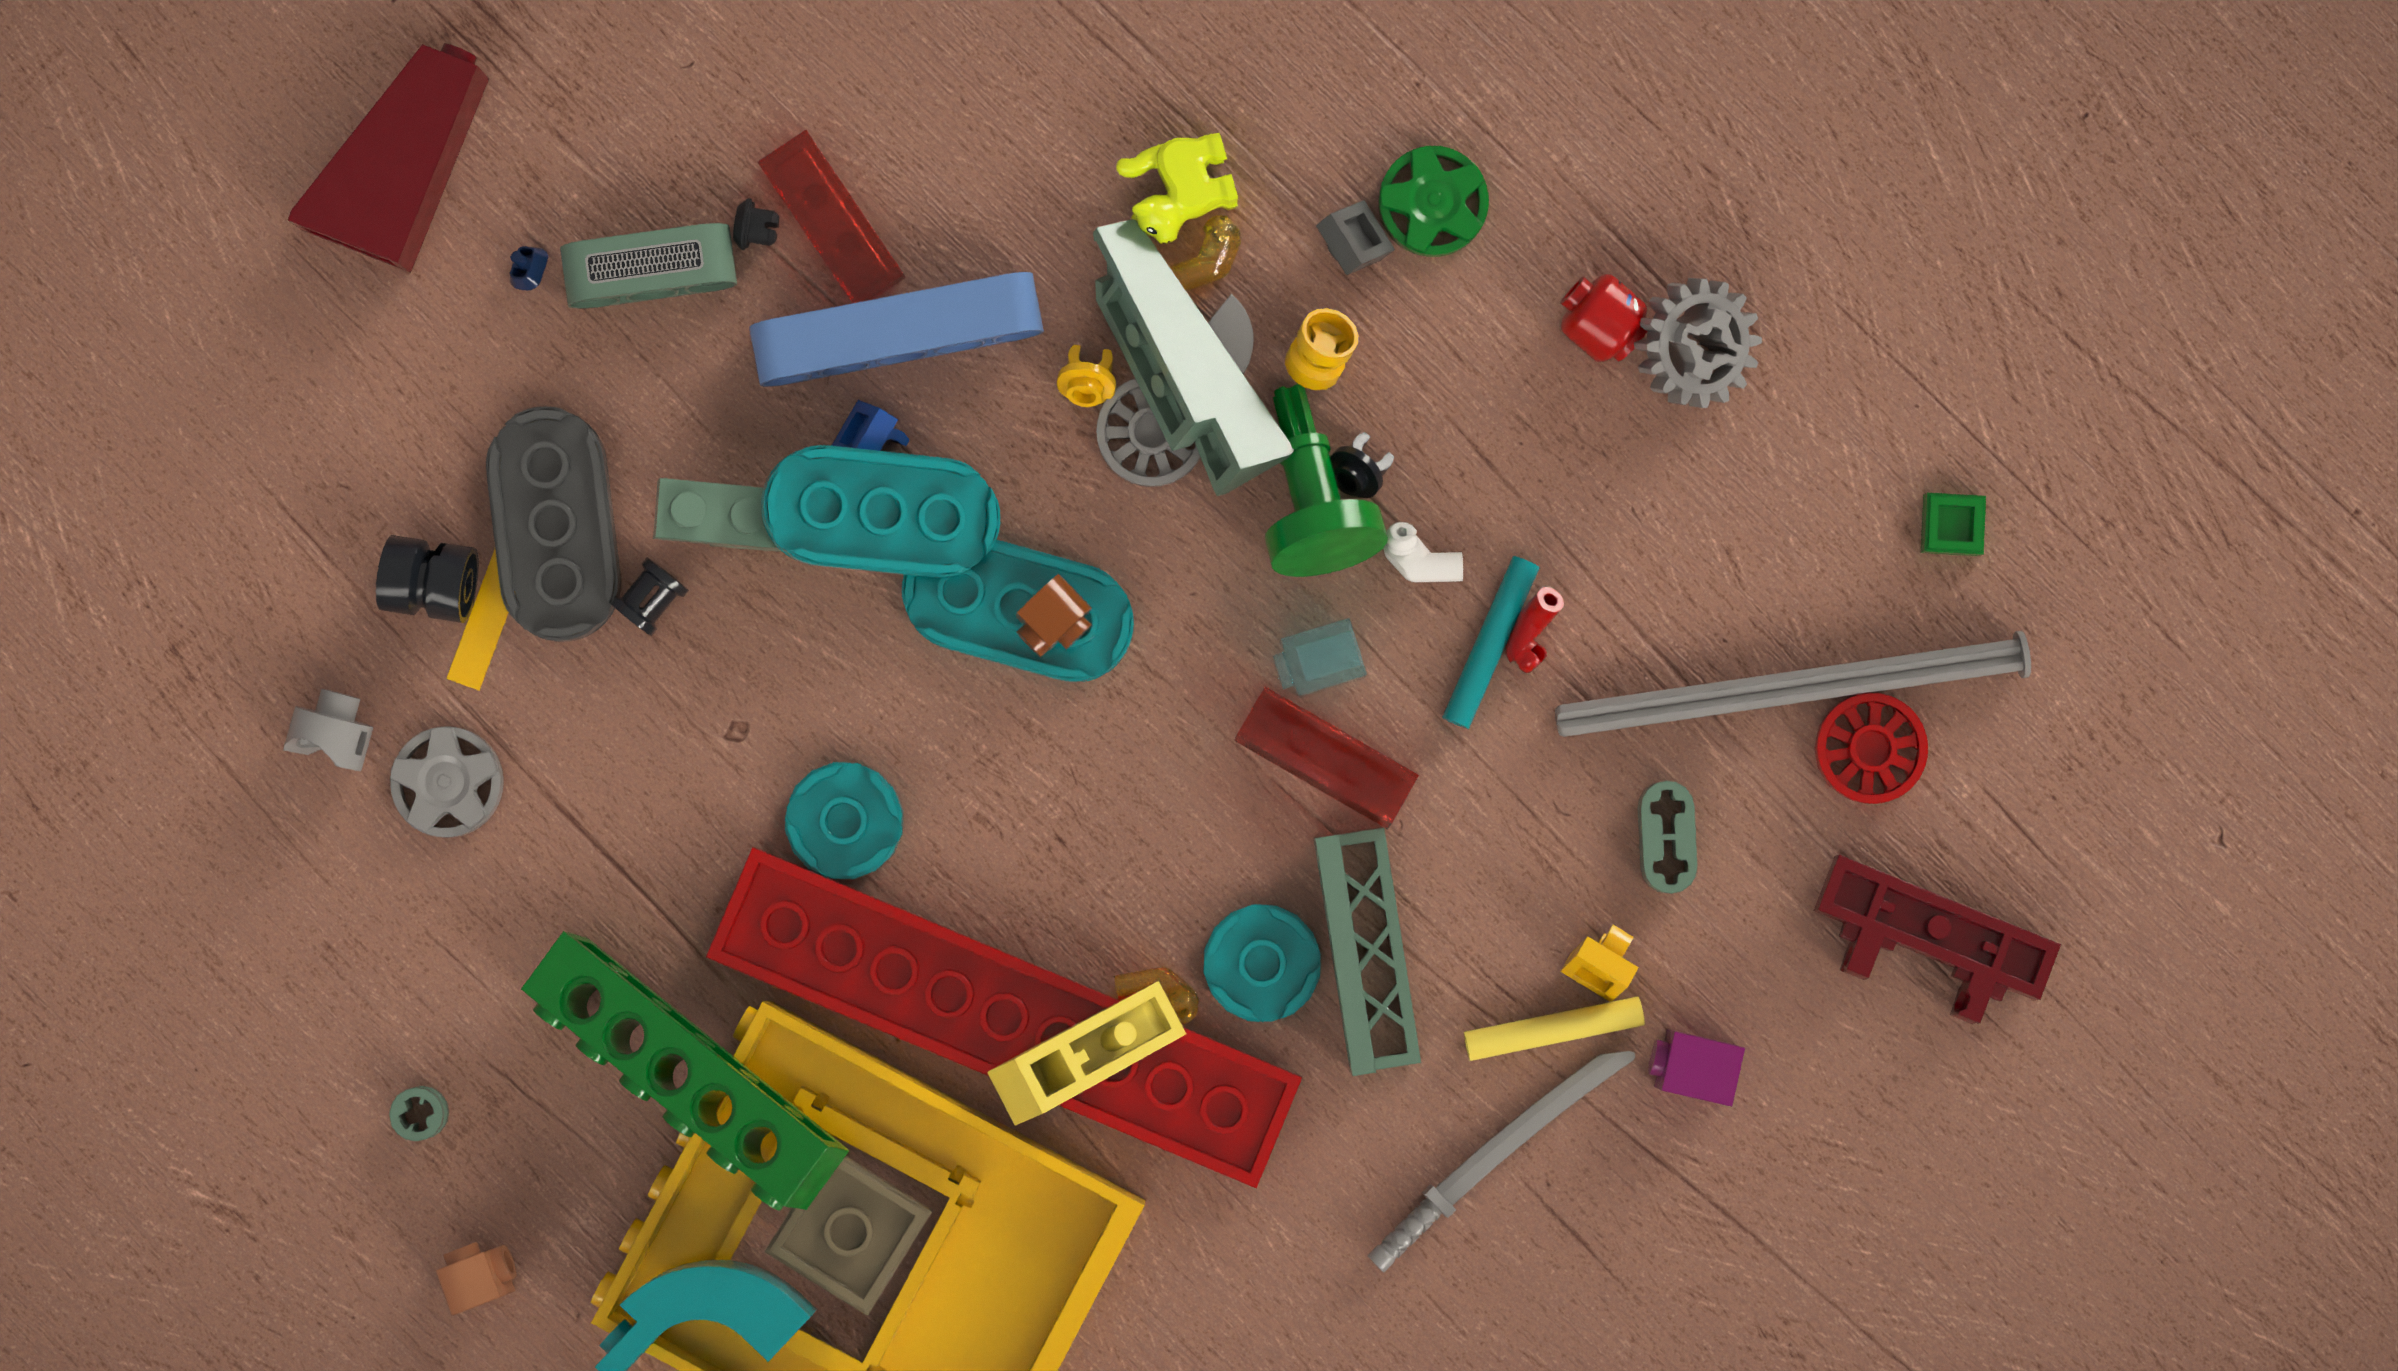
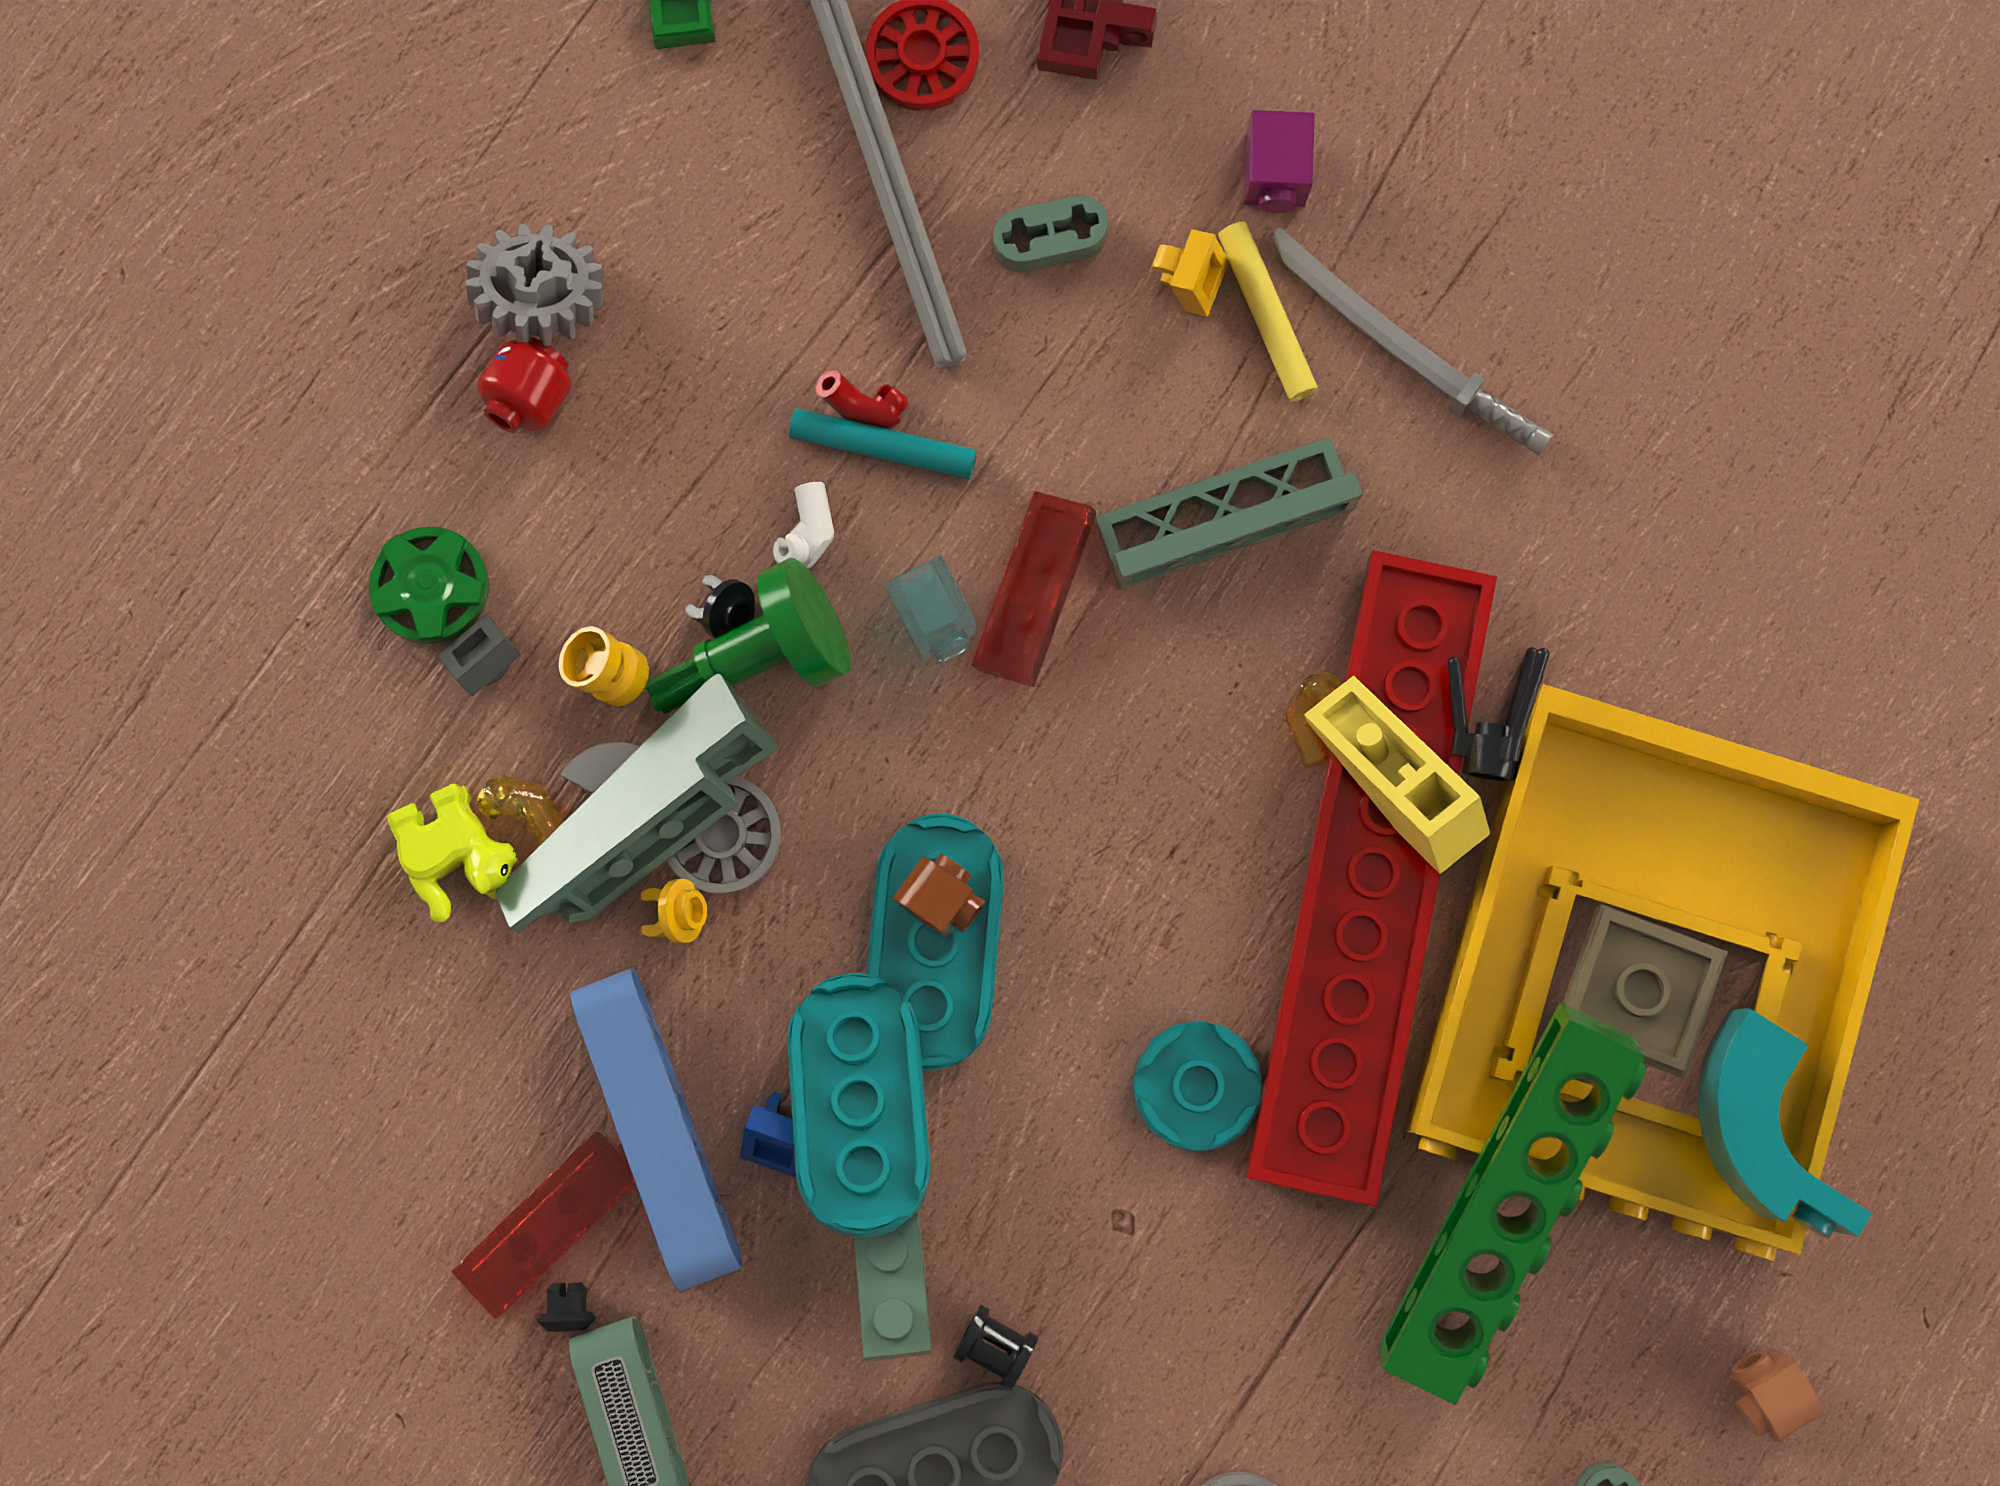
camera: 100 degrees left, 5 degrees down
(1095, 1149) = (1495, 747): none -> black plant
(1262, 963) = (1260, 617): teal tile -> none

